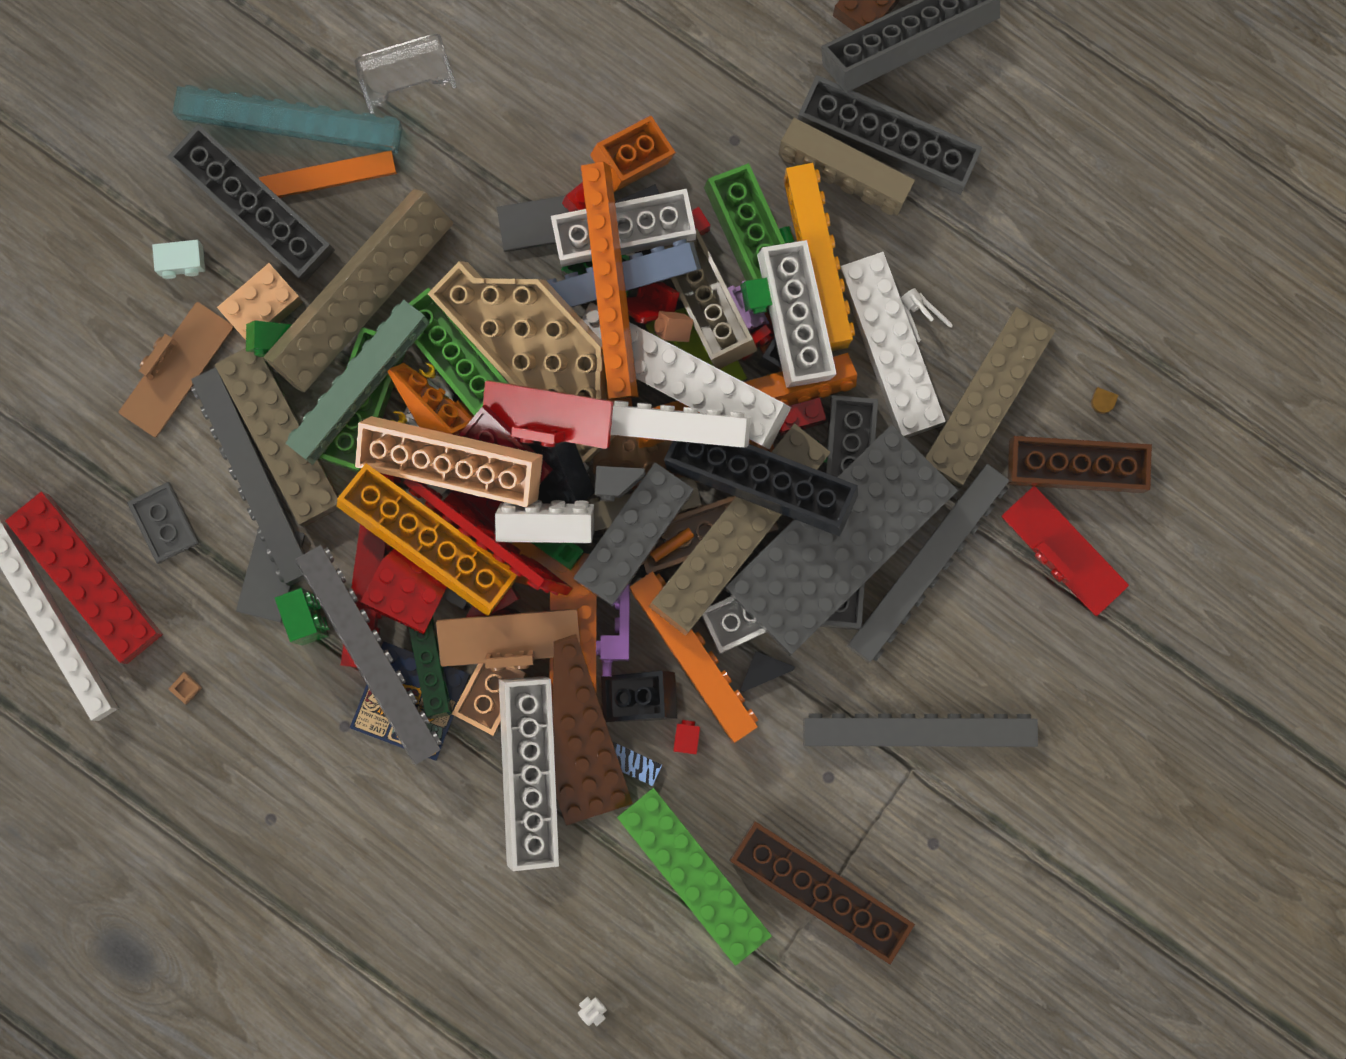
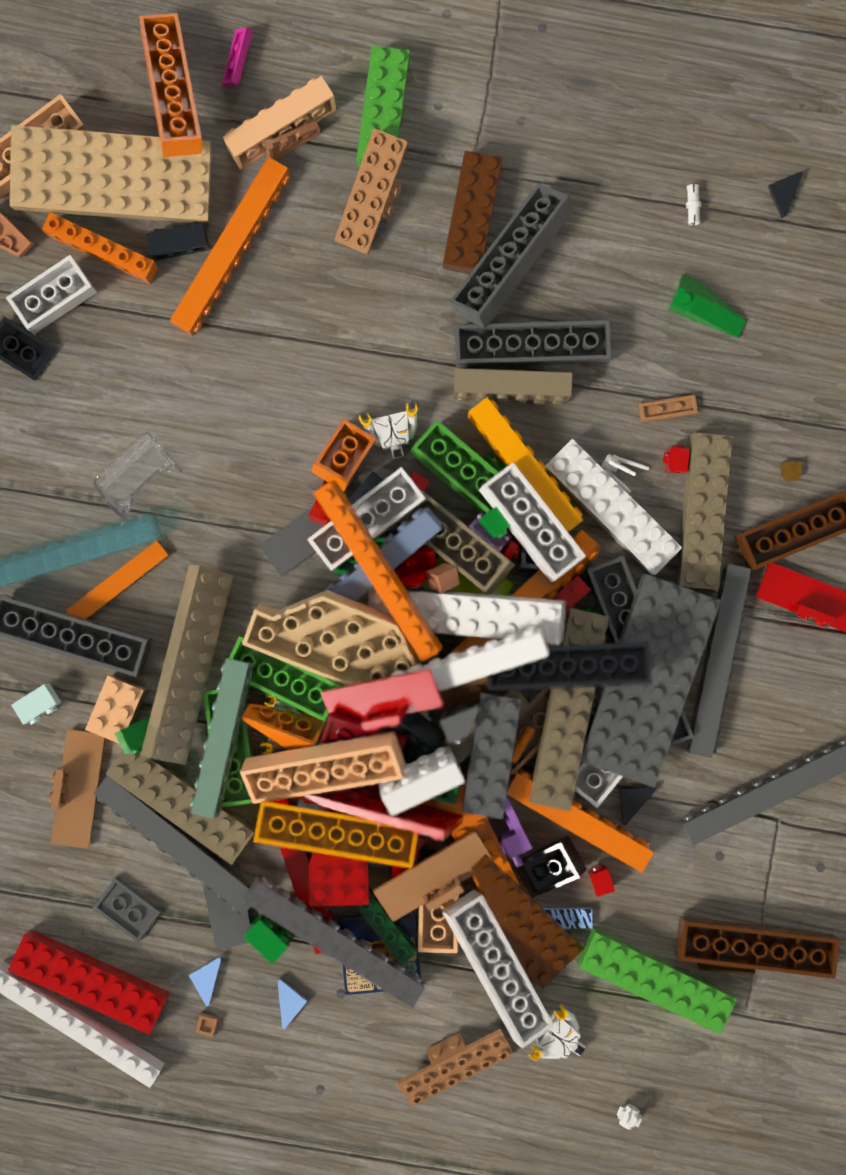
camera: 20 degrees left, 5 degrees up
(208, 638) = (205, 979): none -> light blue tile
(286, 707) = (290, 1002): none -> light blue tile
(429, 859) = (454, 1063): none -> medium nougat bracket
(558, 885) = (560, 1038): none -> white torso
(697, 155) = (392, 430): none -> white torso
(777, 900) = (720, 968): none -> dark brown axle
(984, 329) = (676, 459): none -> red brick
(1002, 273) = (668, 408): none -> medium nougat tile
(1088, 180) = (701, 305): none -> green wedge
(1130, 74) = (693, 205): none -> white pin
(1233, 106) = (784, 191): none -> black tile

